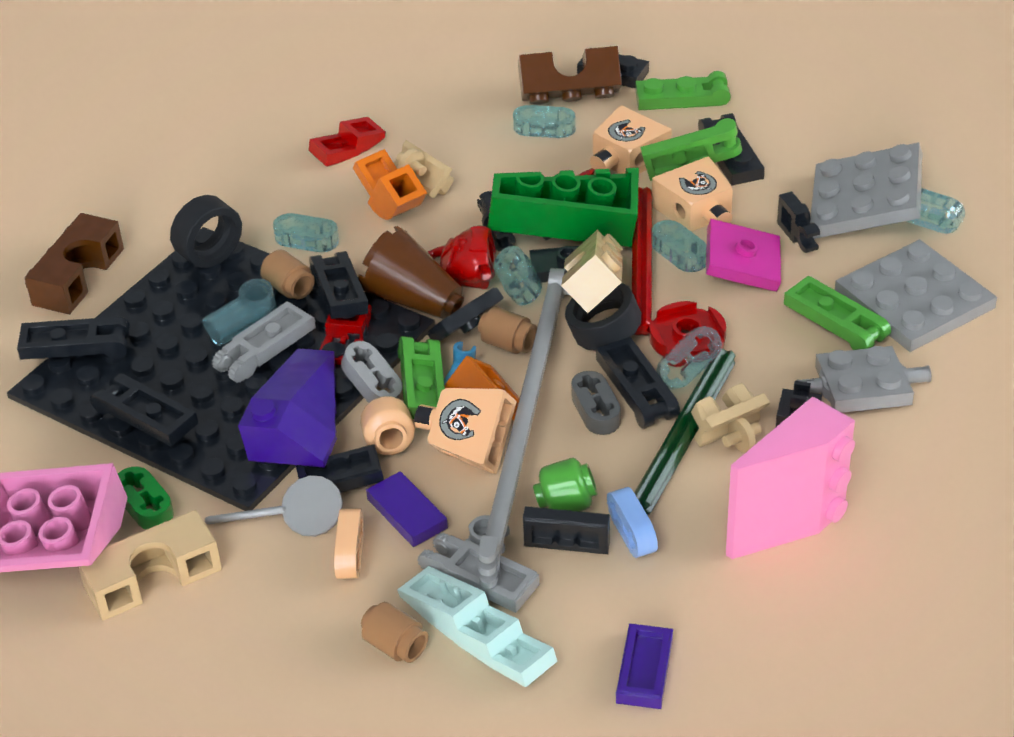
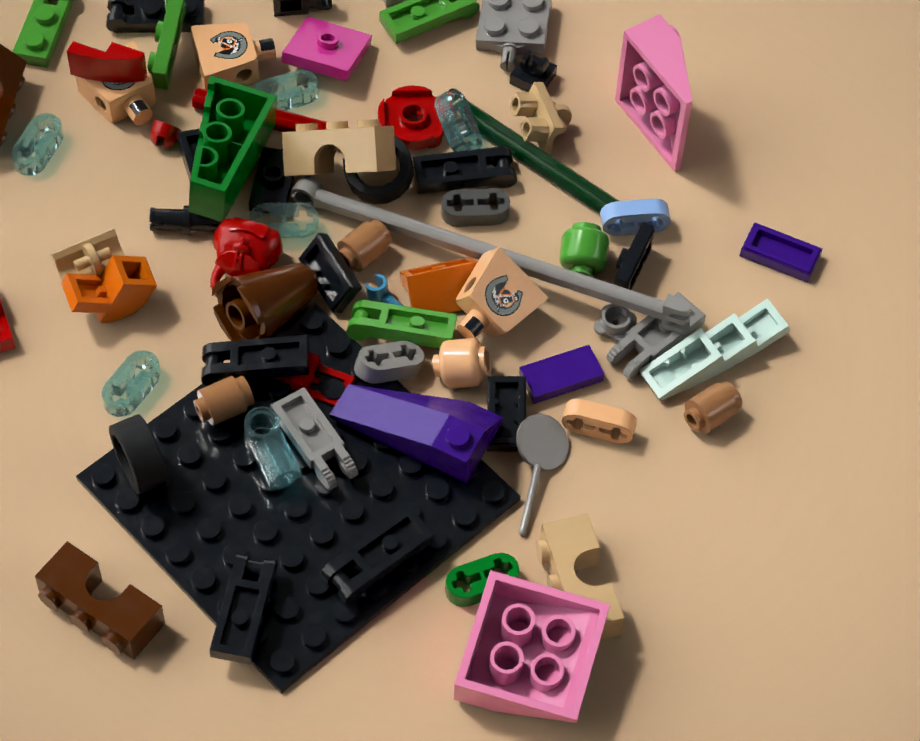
camera: 80 degrees left, 15 degrees up
(624, 111) = (115, 65): none -> red slope

